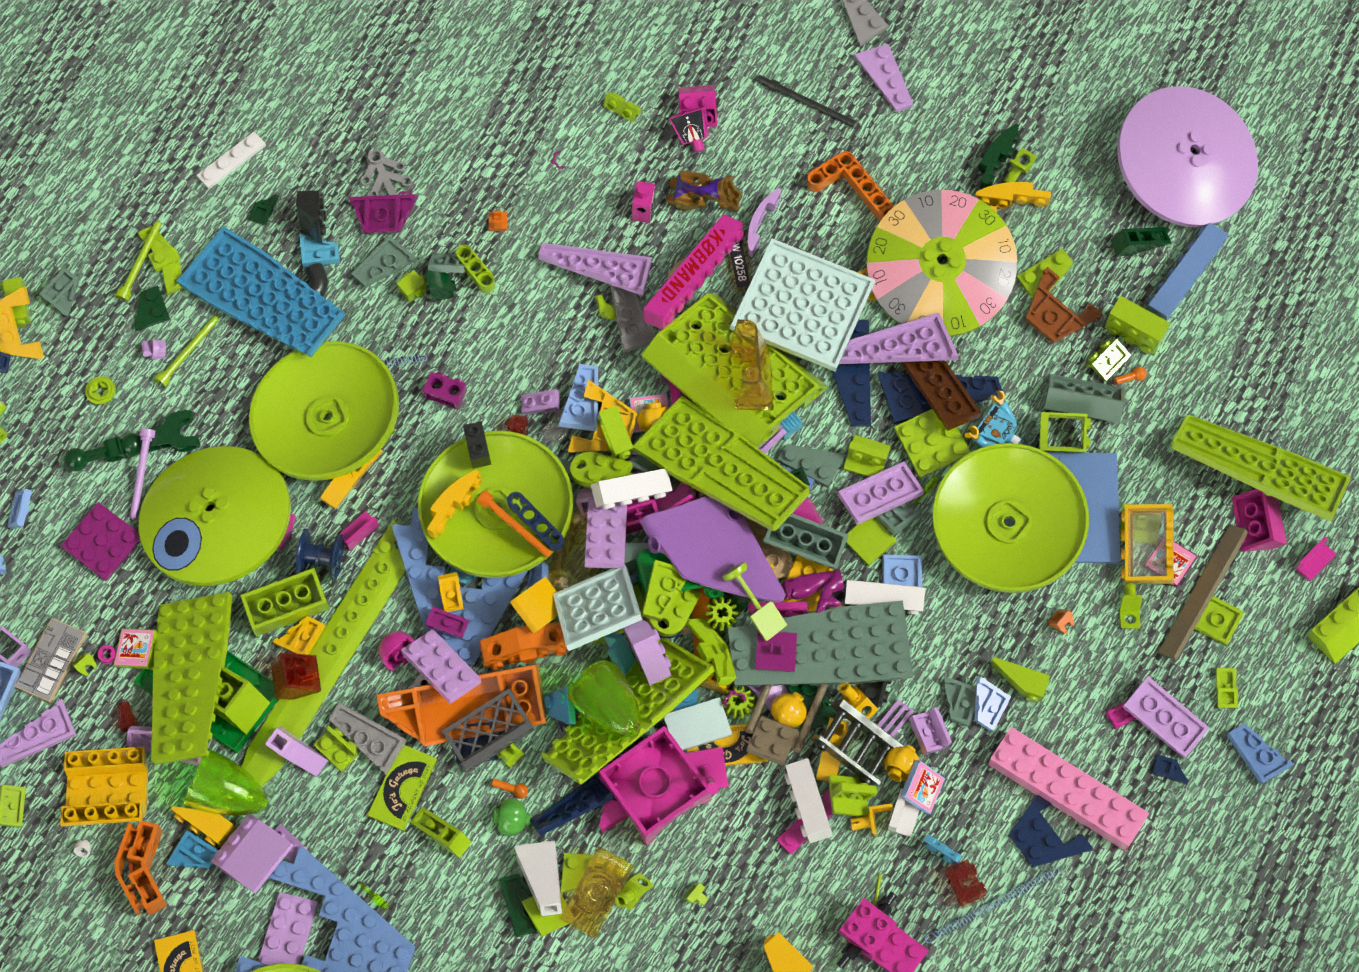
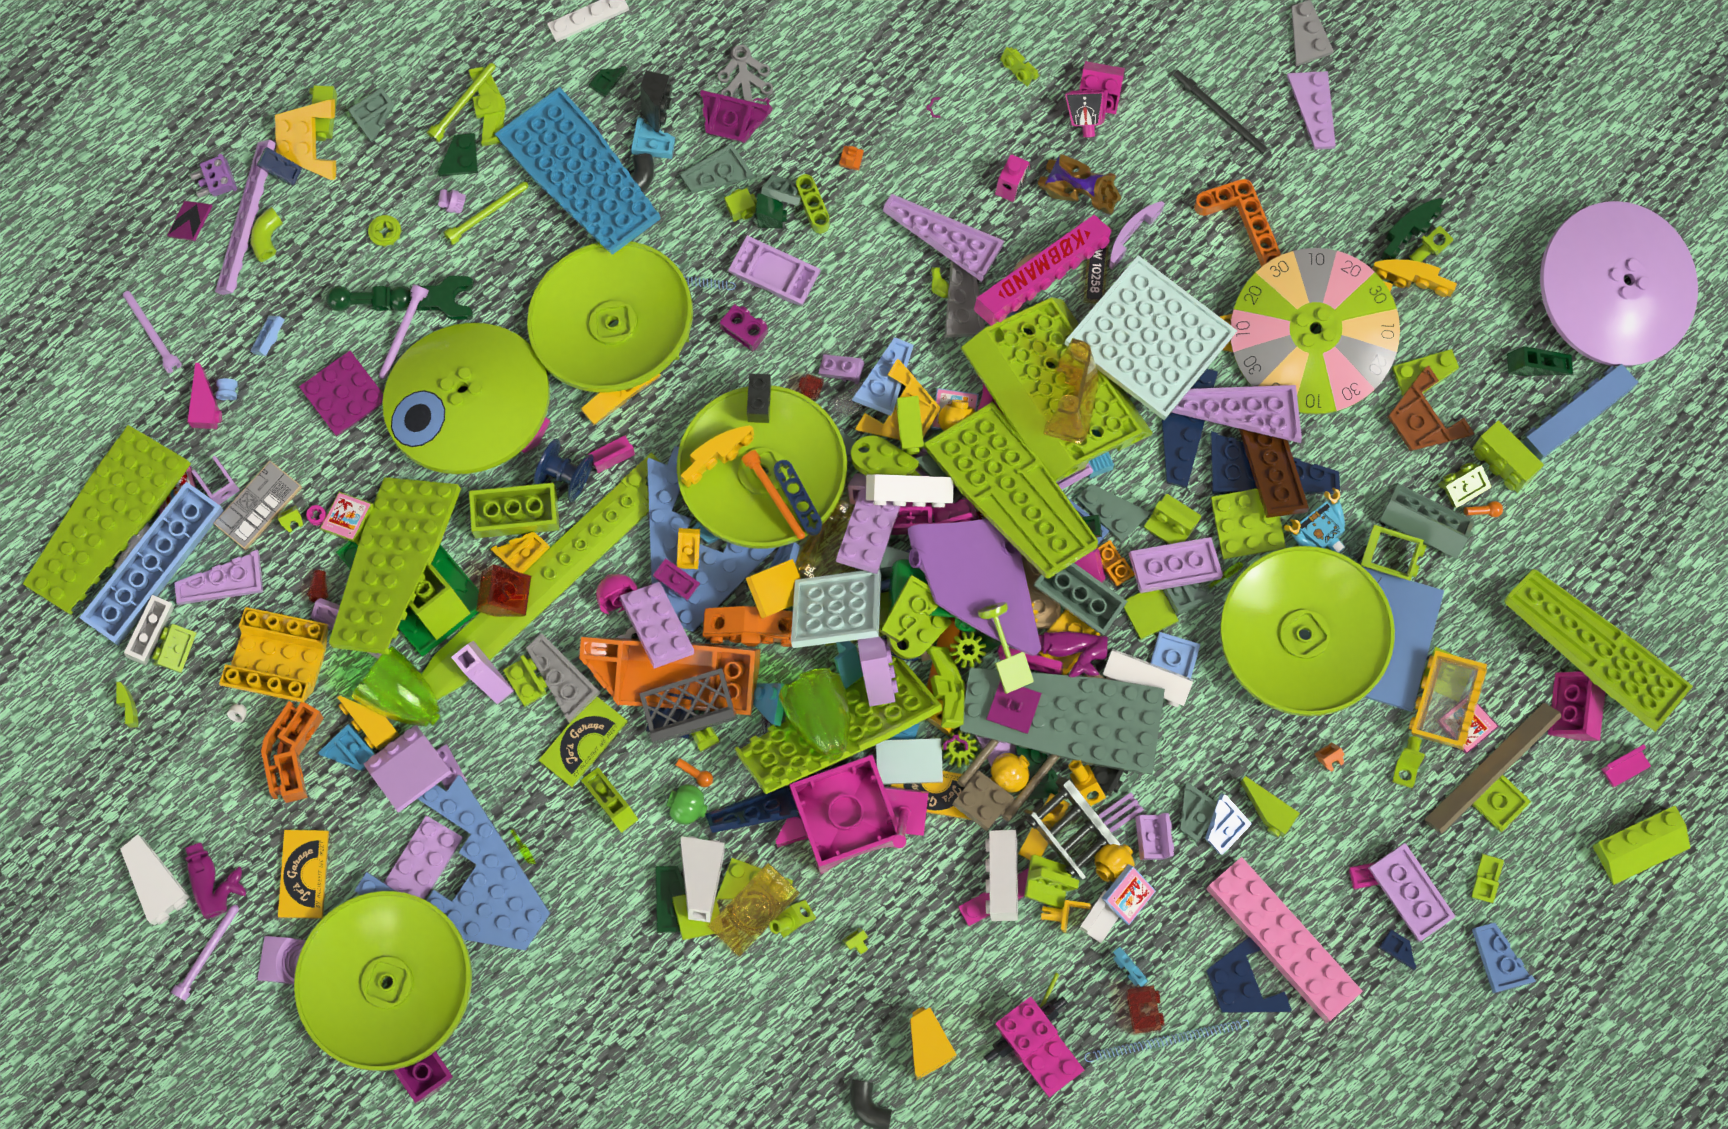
camera: 15 degrees right, 5 degrees up
(457, 335) = (774, 271): none -> lavender slope
(827, 508) = (1114, 564): none -> light orange slope

